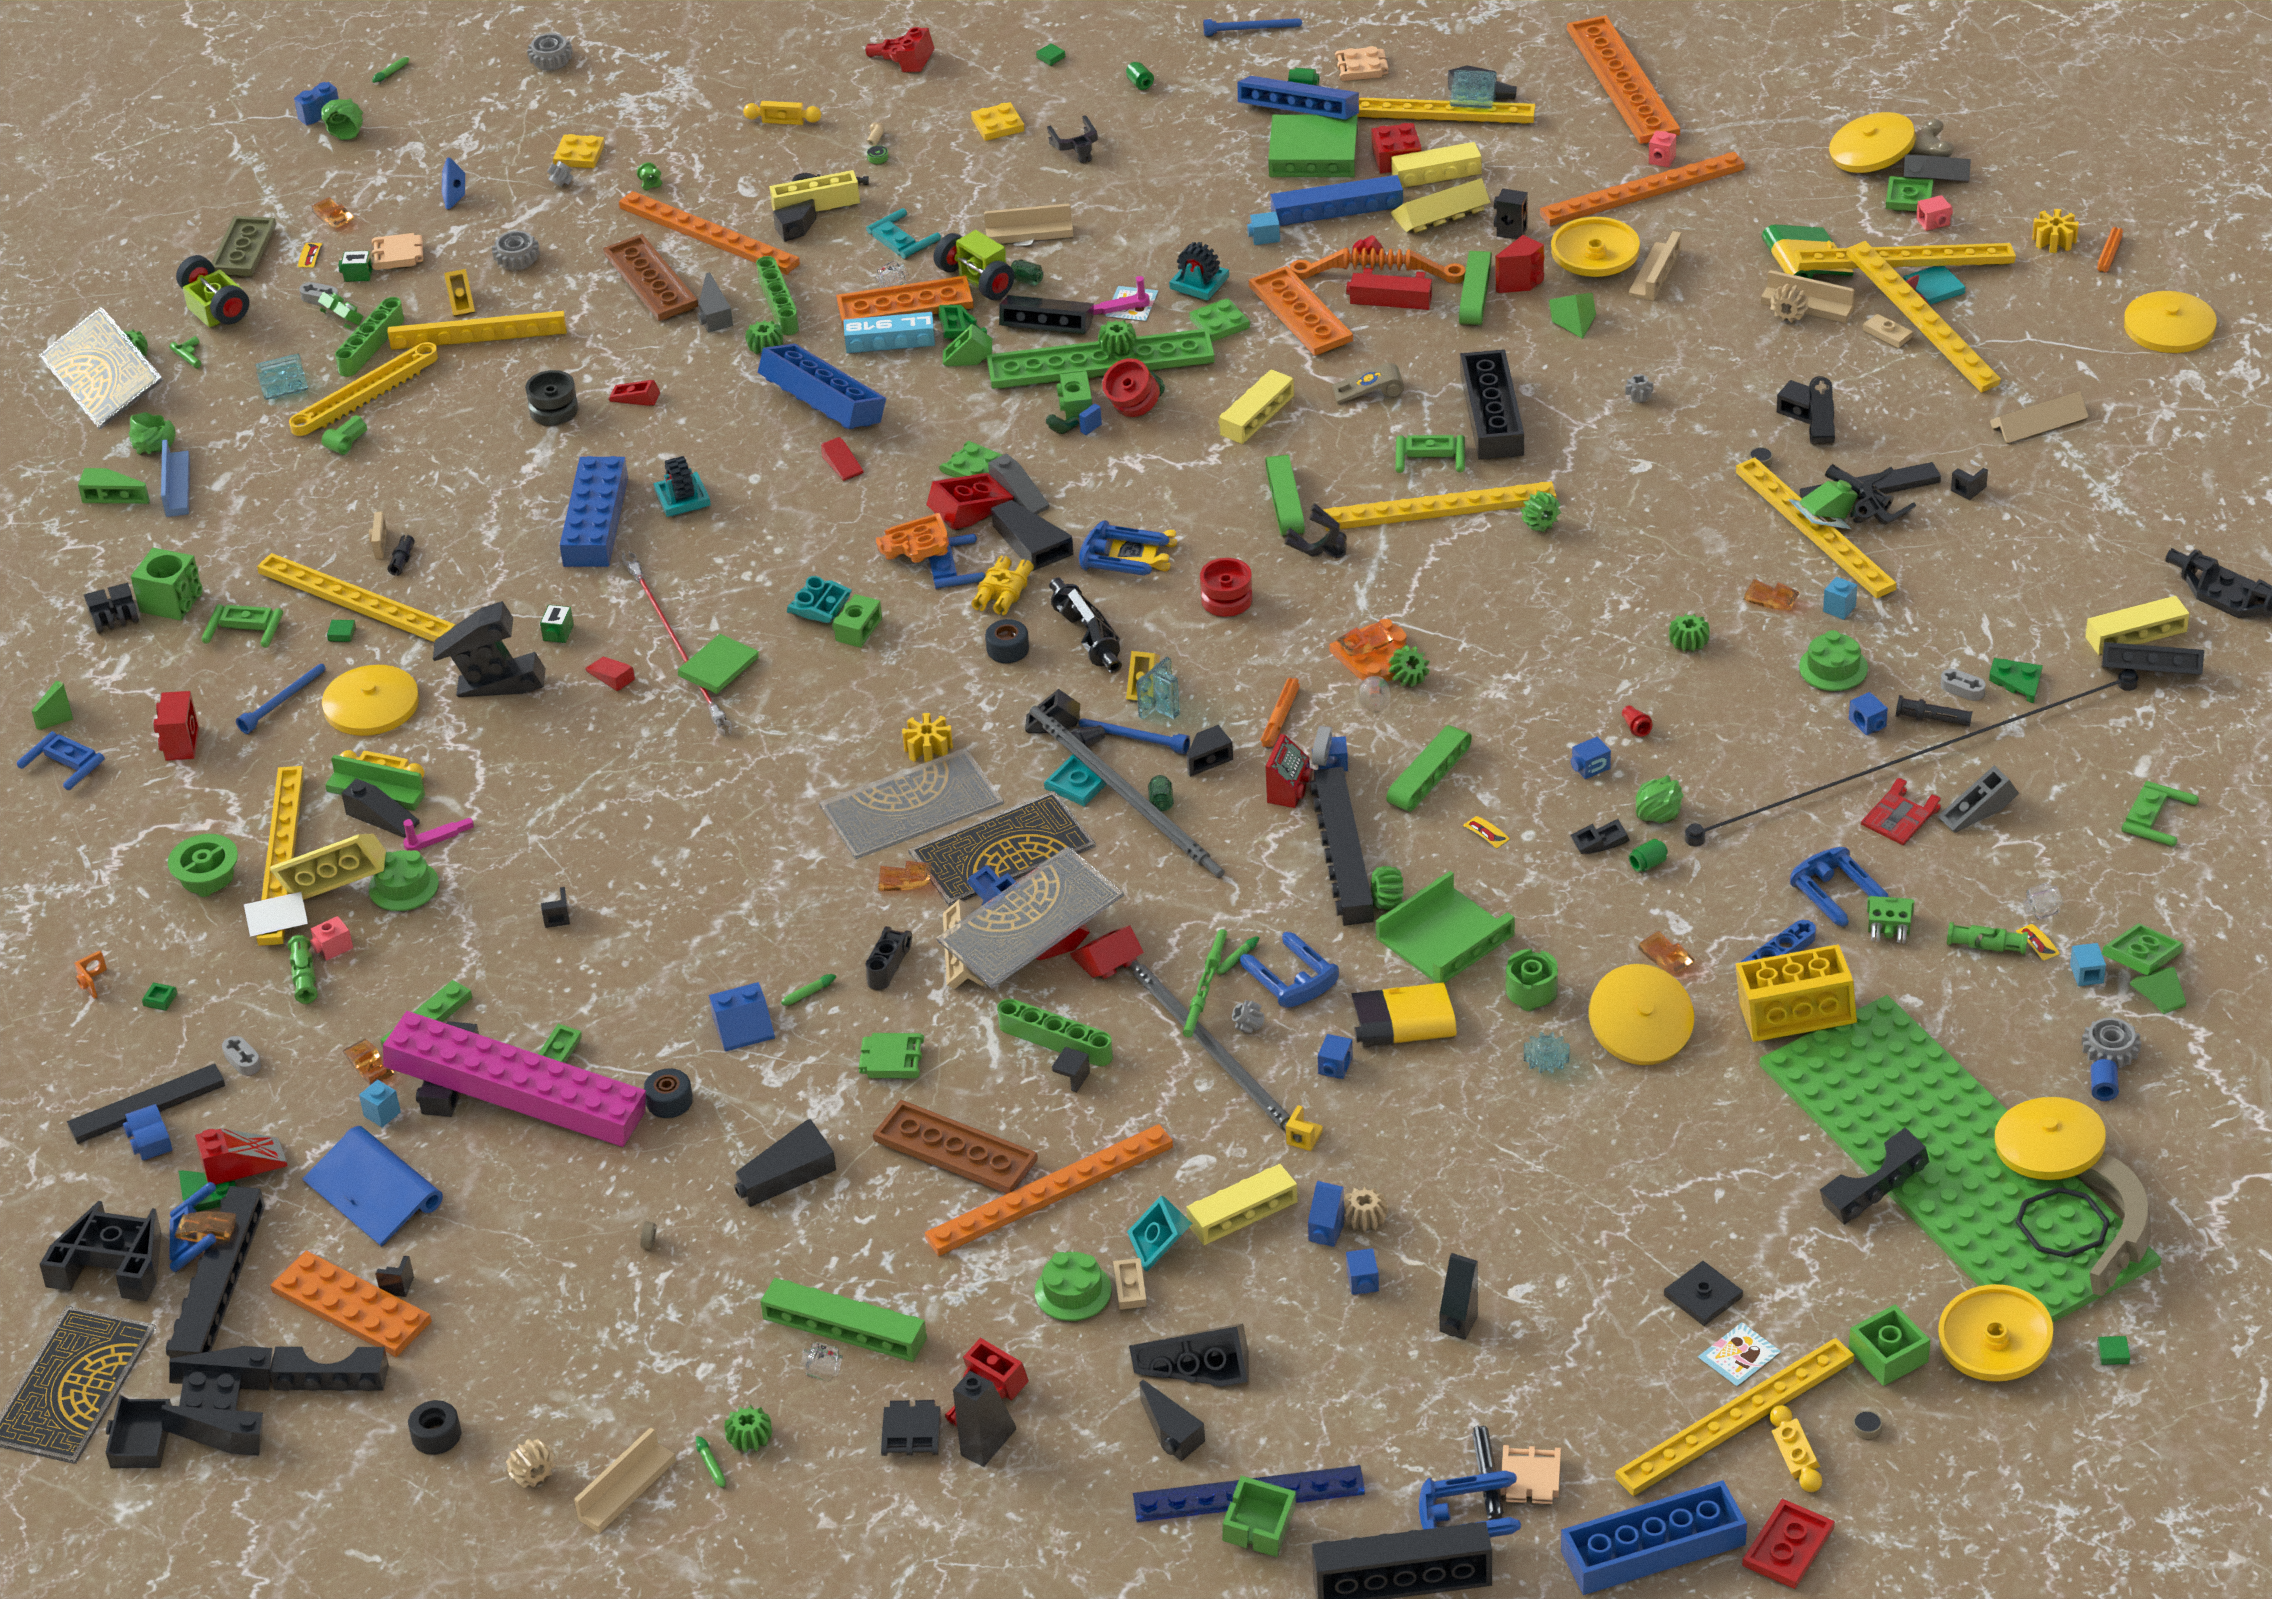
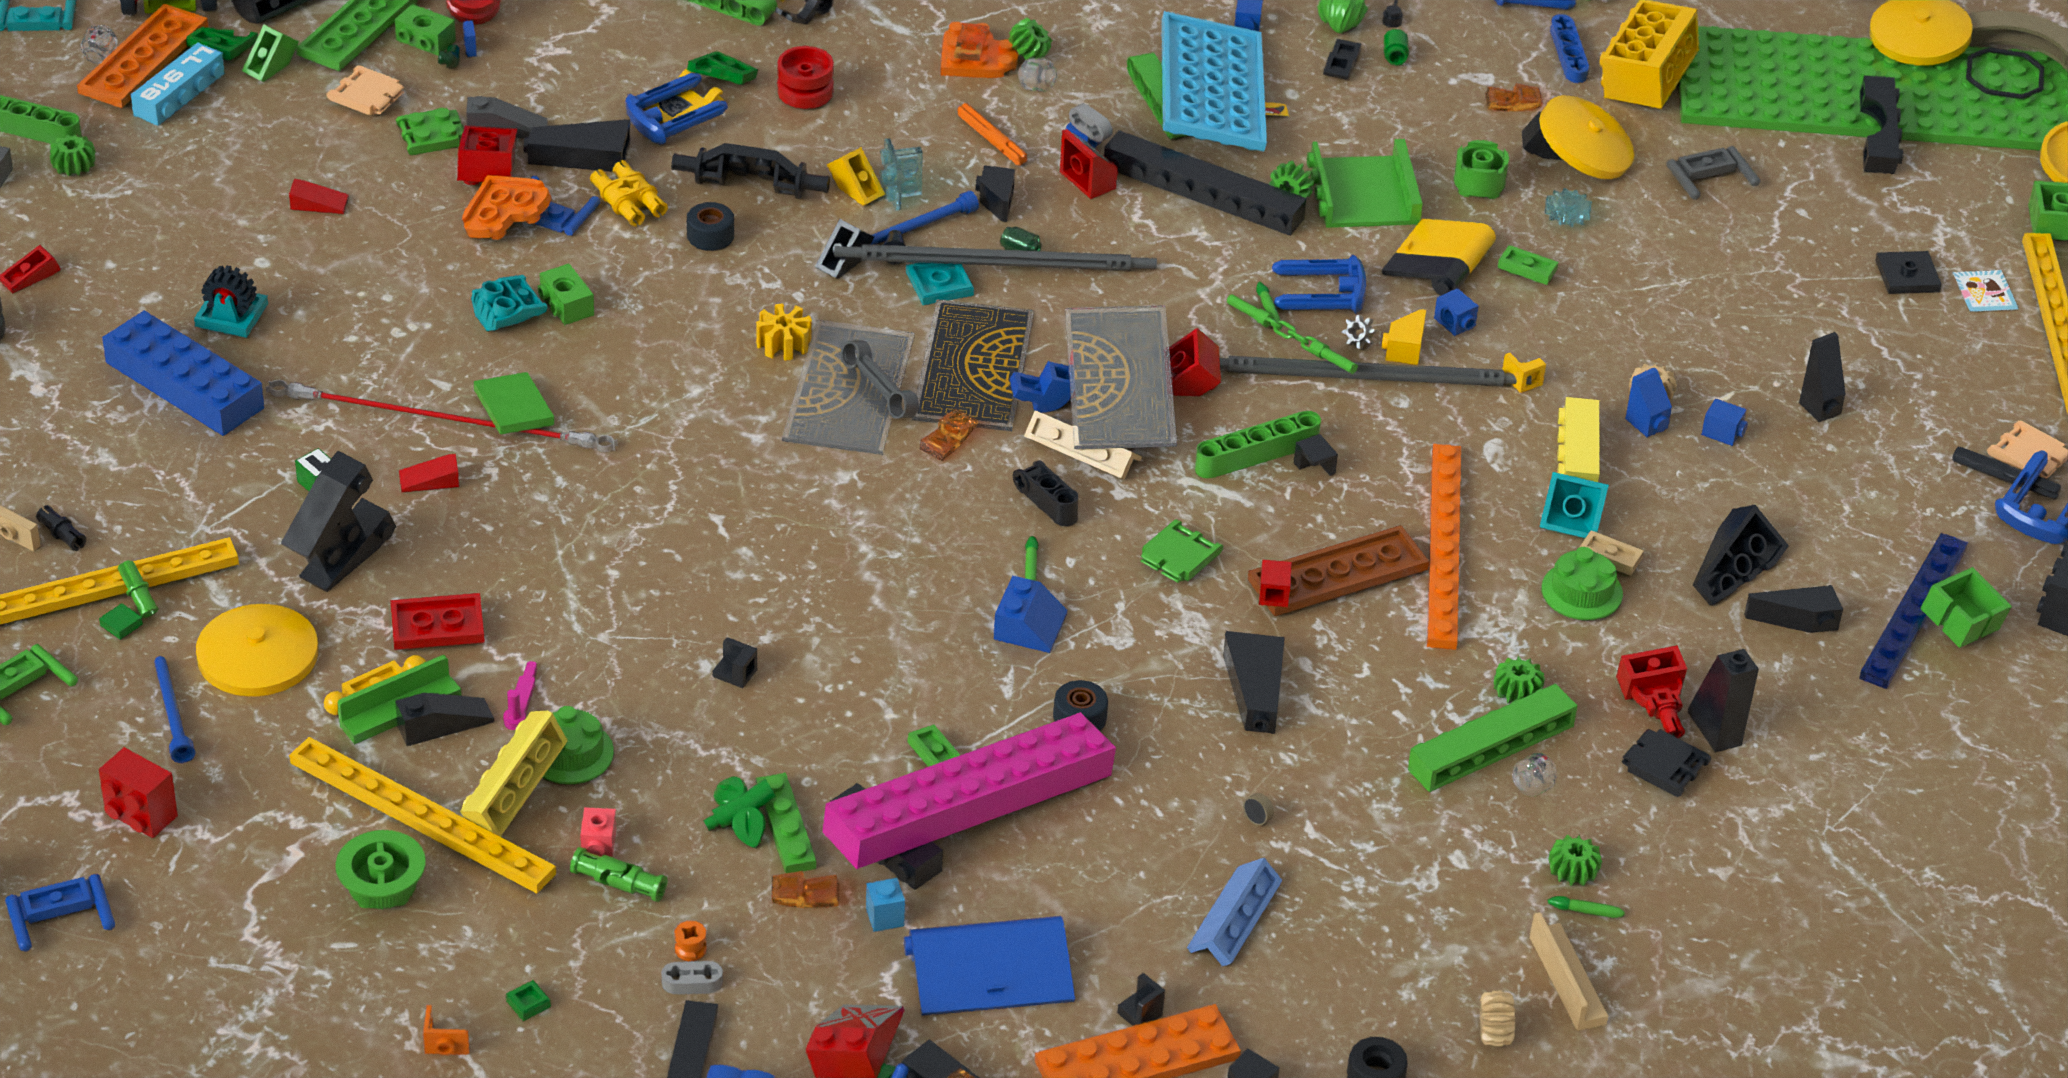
camera: 60 degrees left, 0 degrees up
(270, 1035) = (690, 940): none -> orange wheel
(275, 914) = (517, 854): white sticker -> none
(366, 616) = (137, 589): none -> bright green axle
(416, 984) = (741, 809): none -> green plant
(467, 756) = (437, 621): none -> red plate
(533, 1280) = (1236, 911): none -> medium blue panel
(821, 385) = (209, 152): blue brick -> none
(886, 1115) = (1275, 583): none -> red brick
(919, 809) = (879, 379): none -> dark grey piece
(923, 1301) = (1517, 679): none -> bright green gear
(979, 412) = (368, 92): none -> light nougat plate
(1194, 543) = (723, 67): none -> green wing
(1273, 1046) = (1405, 338): none -> yellow slope
(1445, 1067) = (1527, 265): none -> bright green plate
(1462, 793) = (1213, 81): none -> medium azure piece
(1705, 1104) = (1709, 164): none -> dark grey plate

